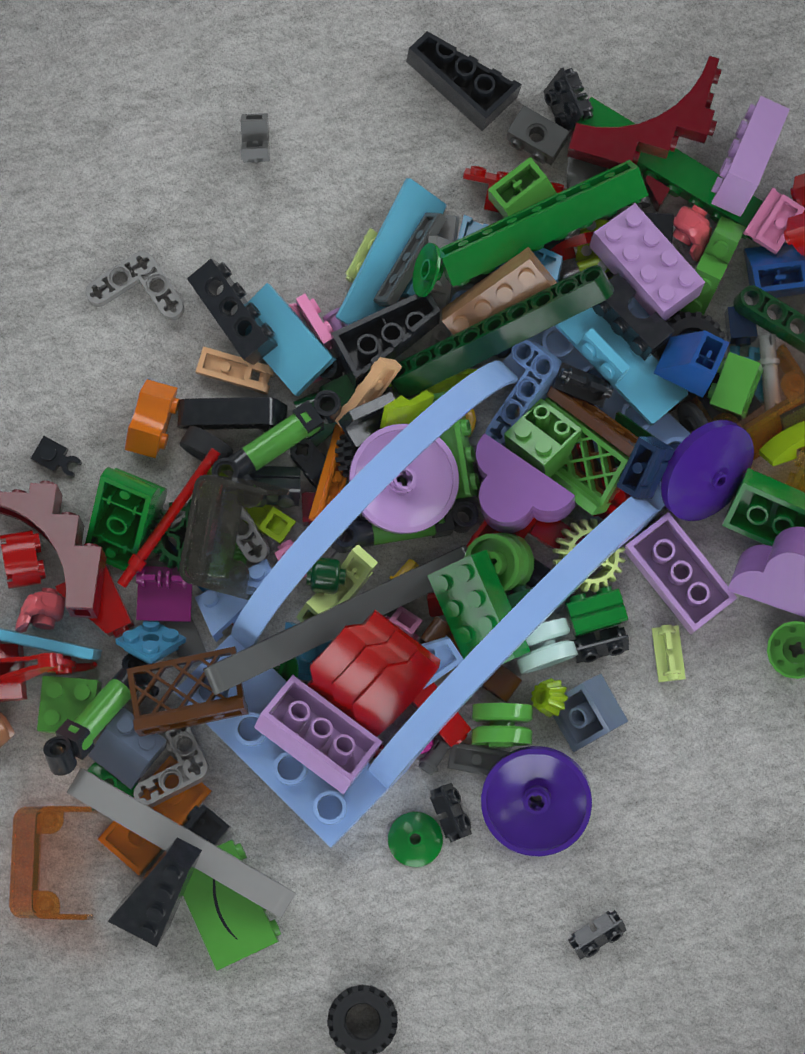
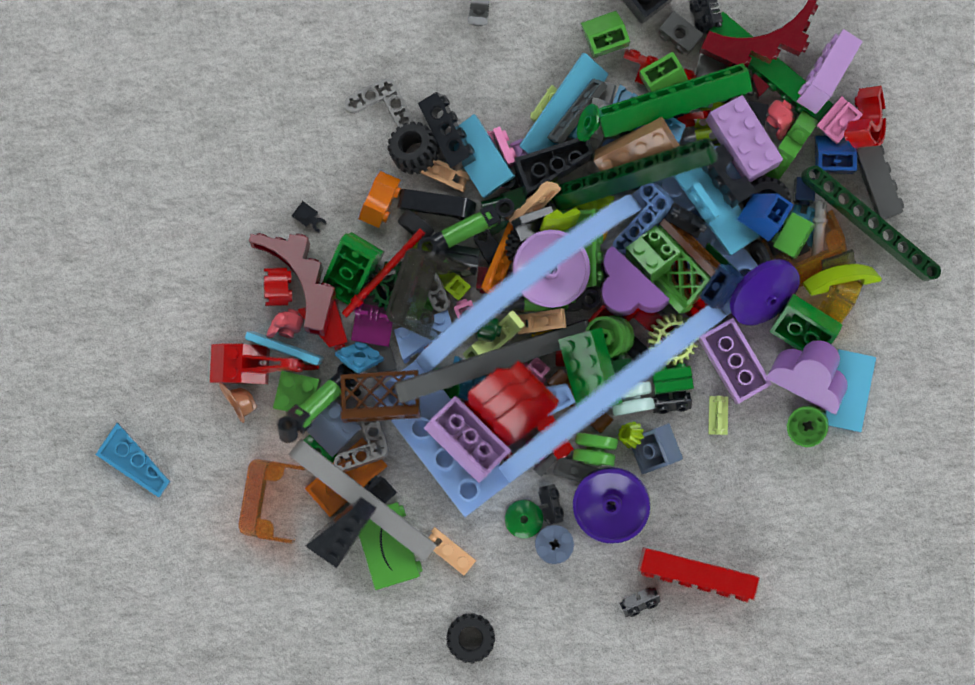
camera: 10 degrees right, 5 degrees up
(179, 326) = (419, 159): none -> black tyre
(319, 901) = (452, 552): none -> light nougat plate
(403, 555) = (543, 321): none -> light nougat plate
(435, 151) = (605, 34): none -> bright green slope
(476, 859) = (559, 554): none -> sand blue brick
(674, 880) = (698, 573): none -> red brick

